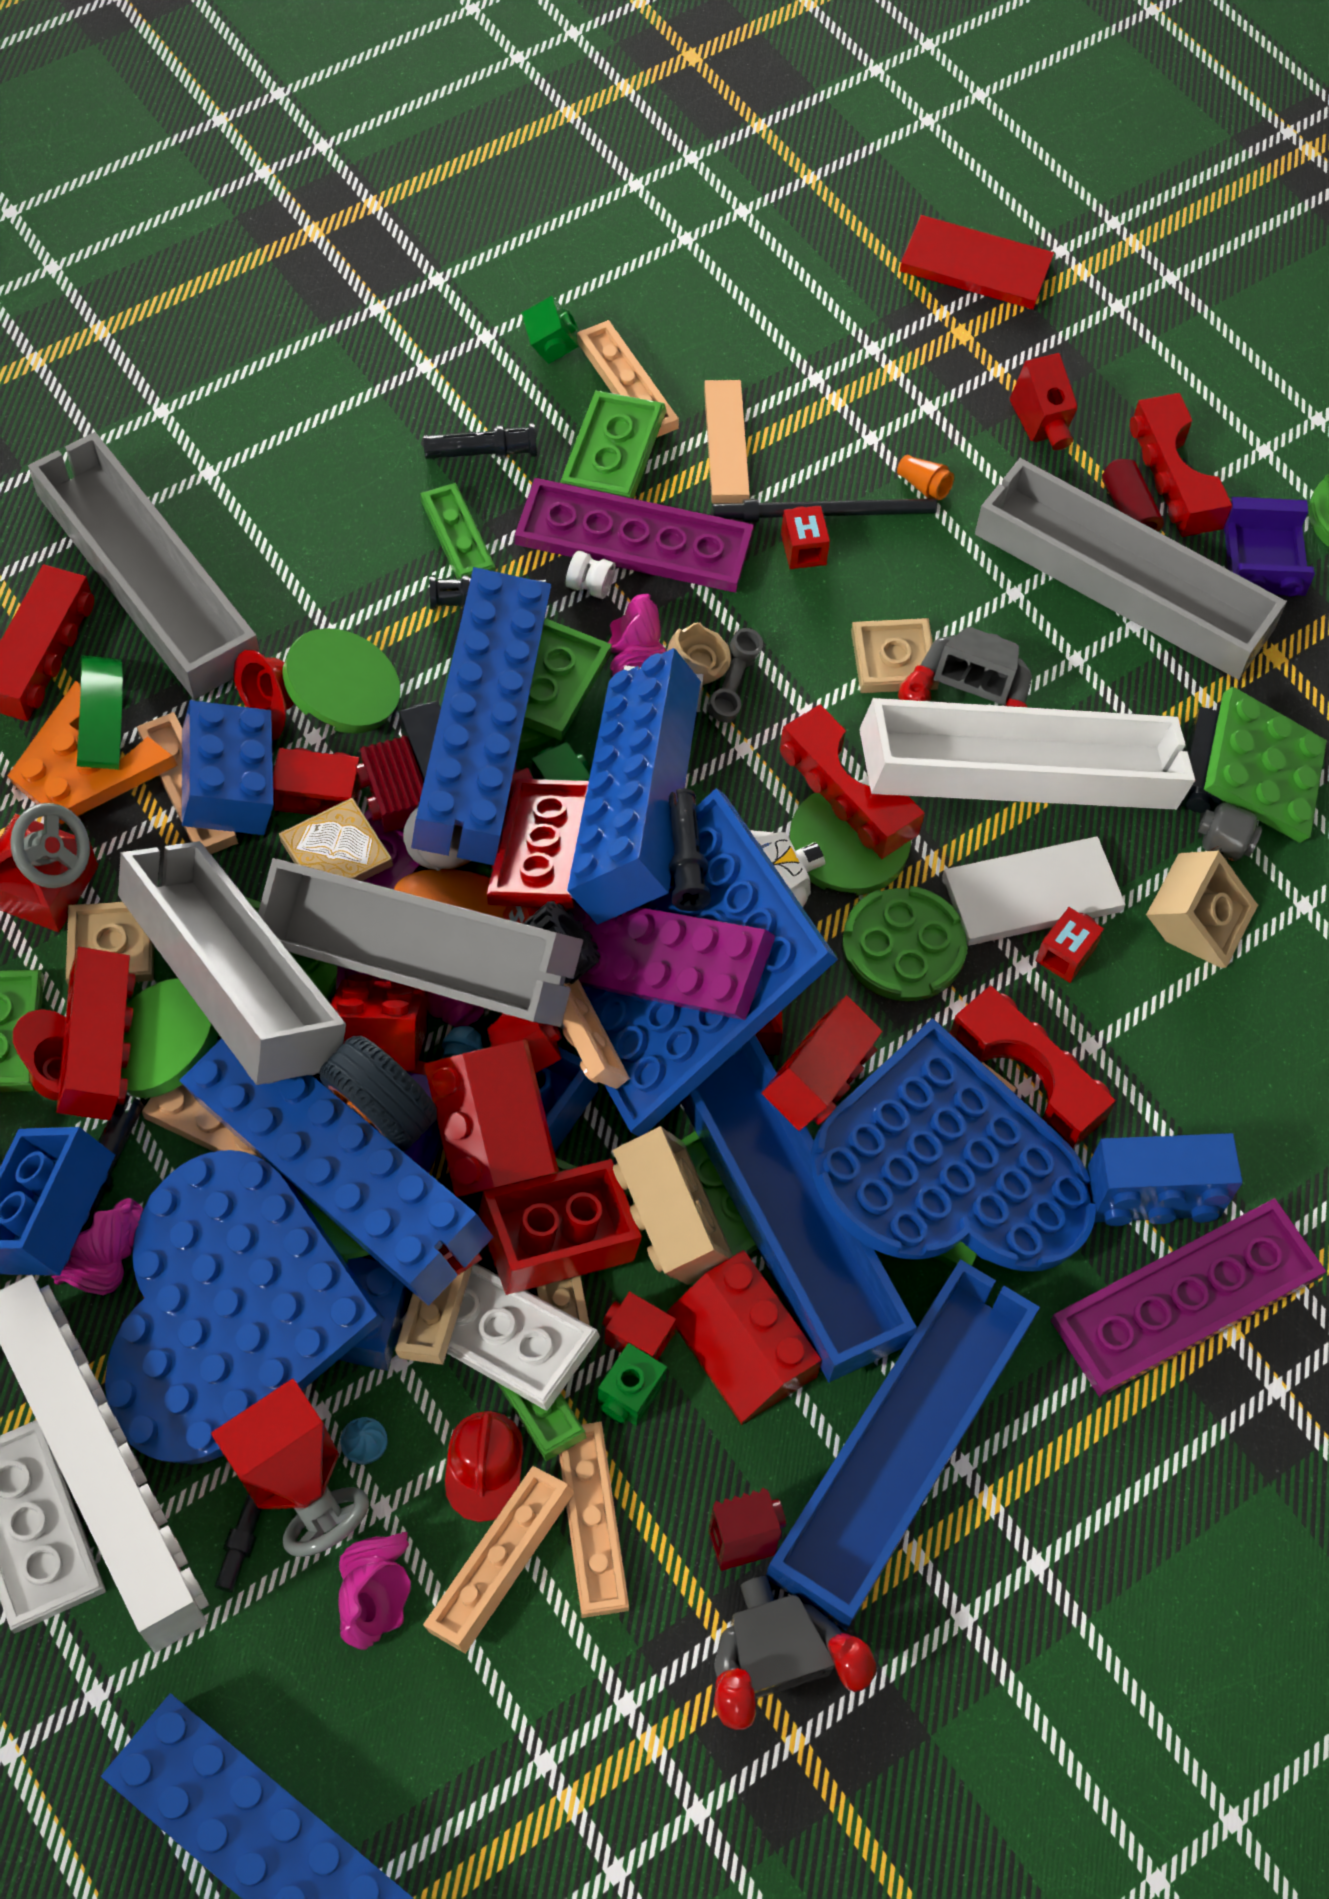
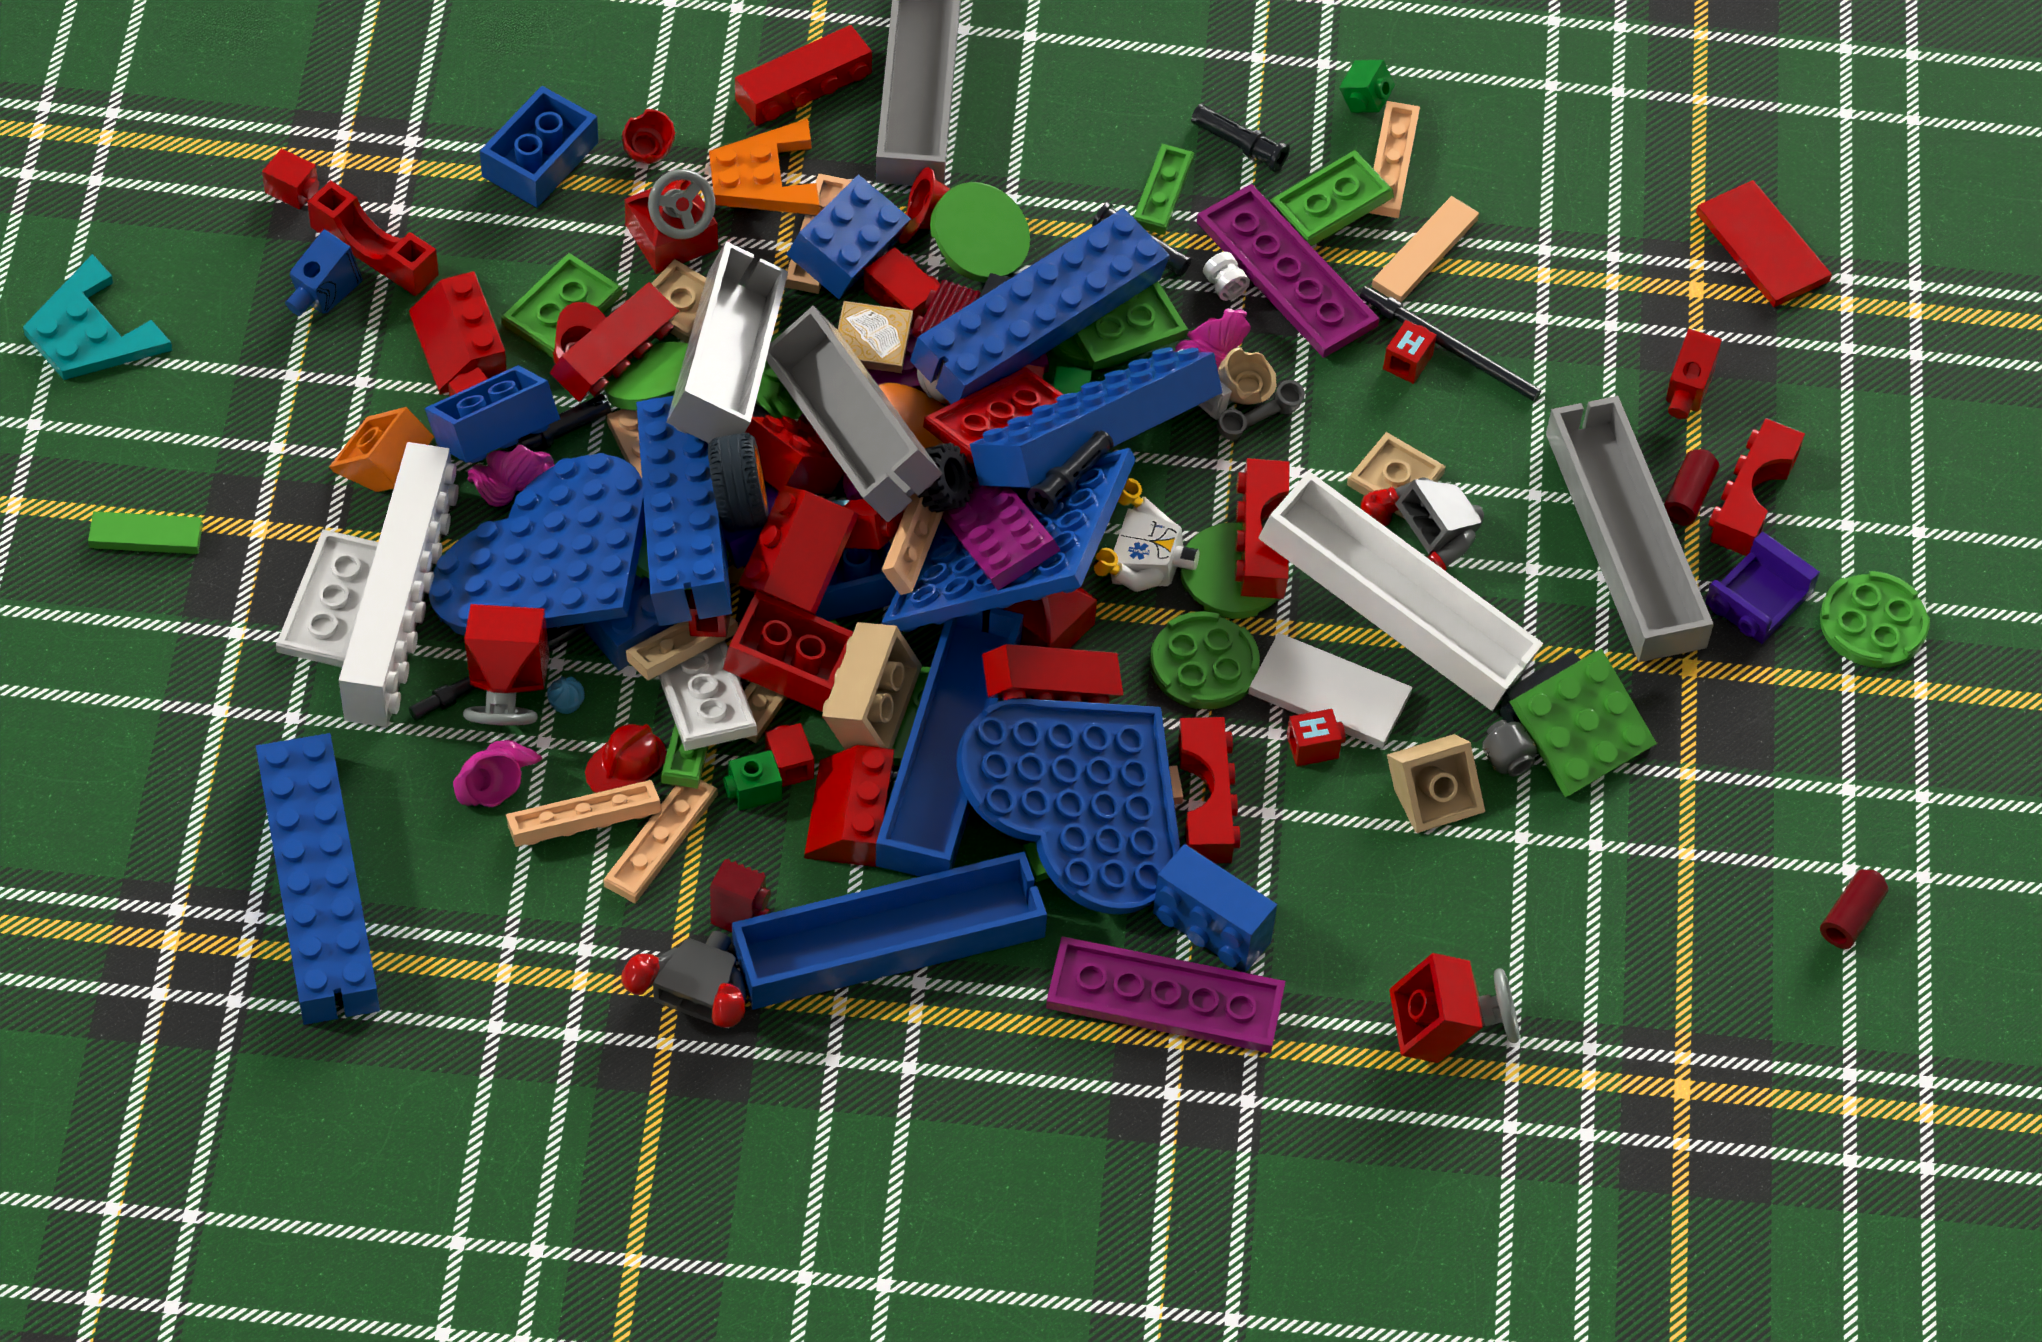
camera: 40 degrees right, 5 degrees down
(100, 712) = (800, 144): green slope -> none
(928, 477) = (1549, 372): orange cone -> none

